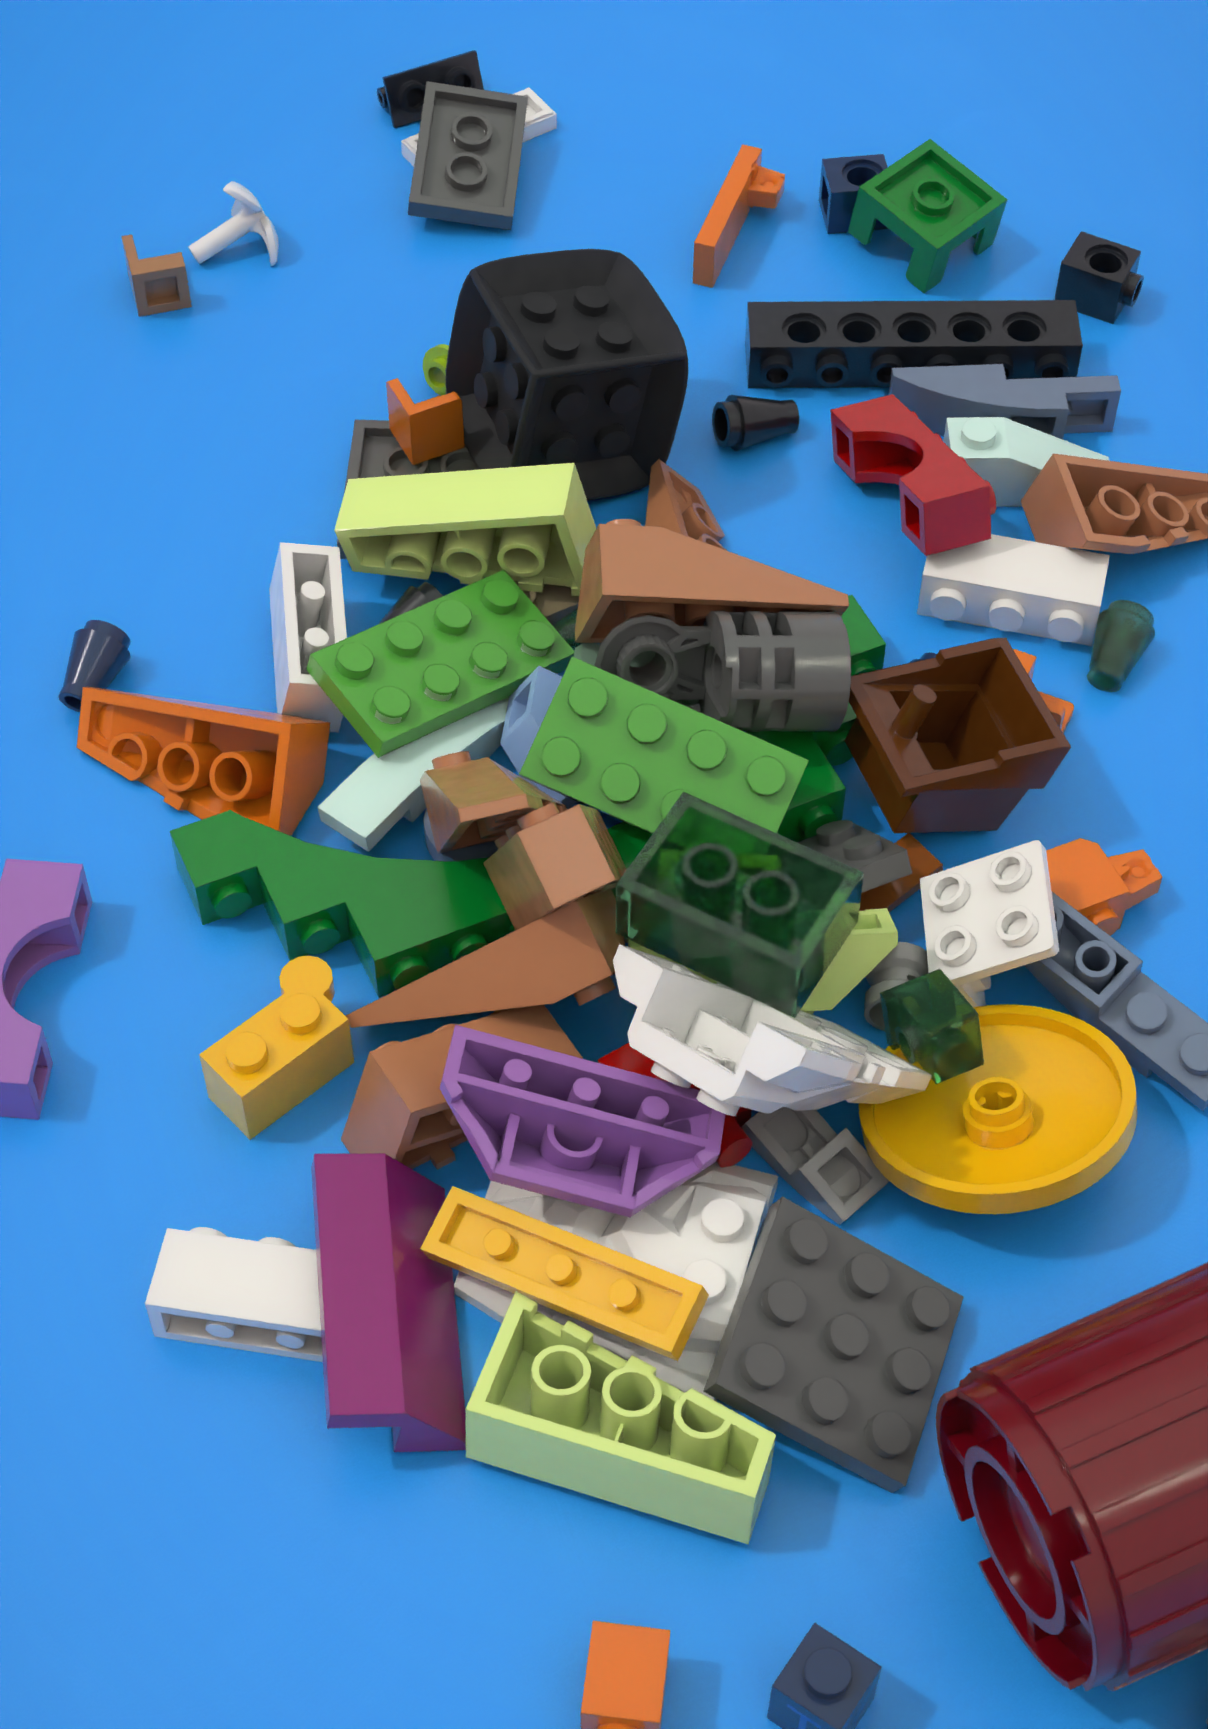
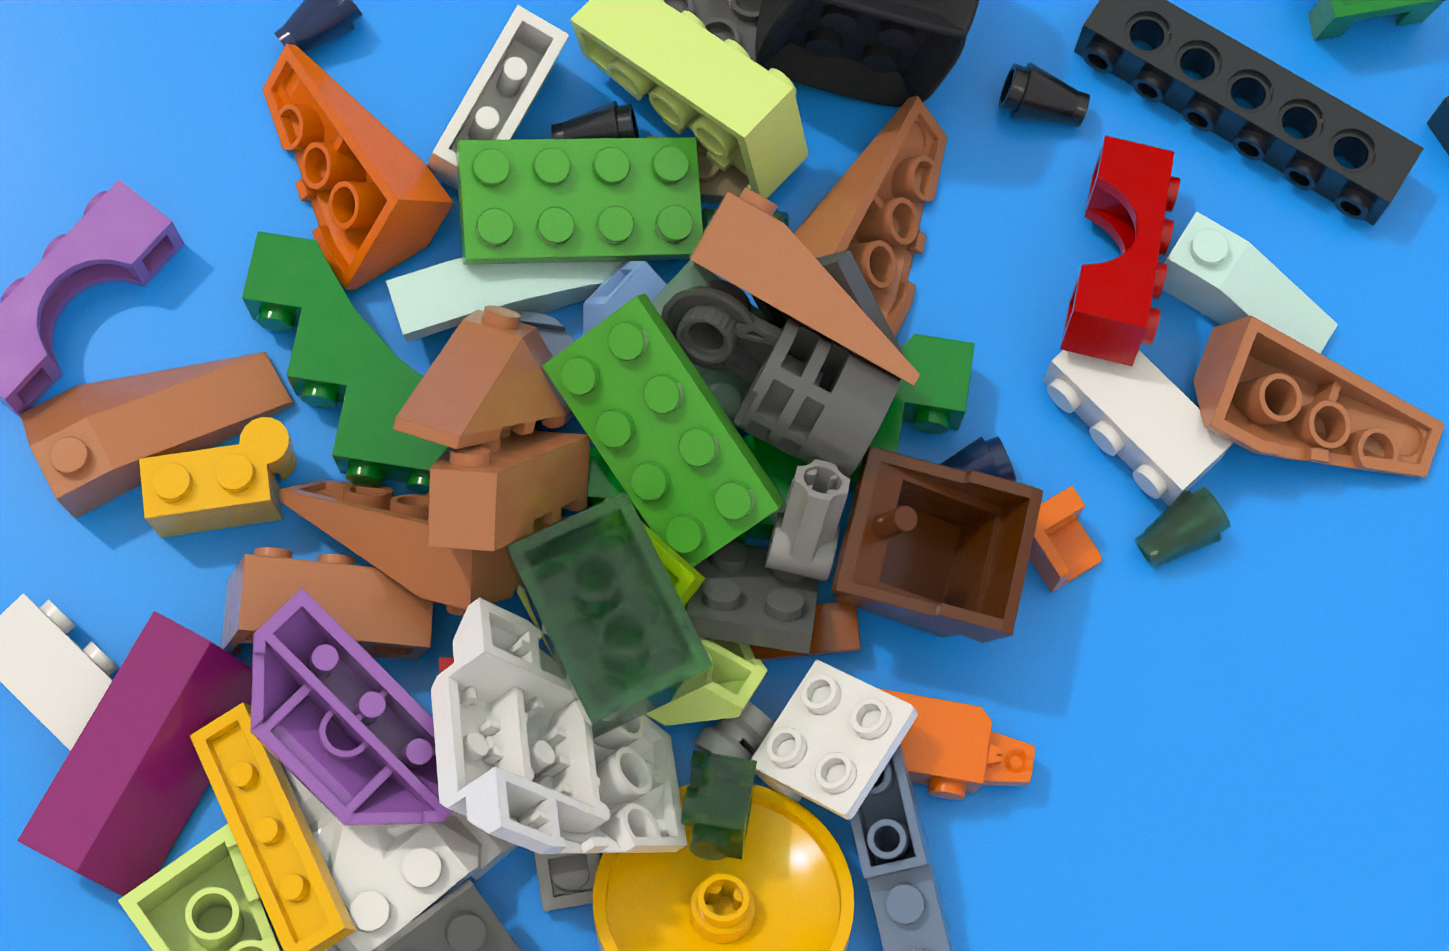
camera: 30 degrees right, 20 degrees up
(147, 1075) = (99, 430): none -> nougat wedge
(840, 783) = (808, 530): none -> light grey piece
(983, 391) = (1255, 203): sand blue slope -> none

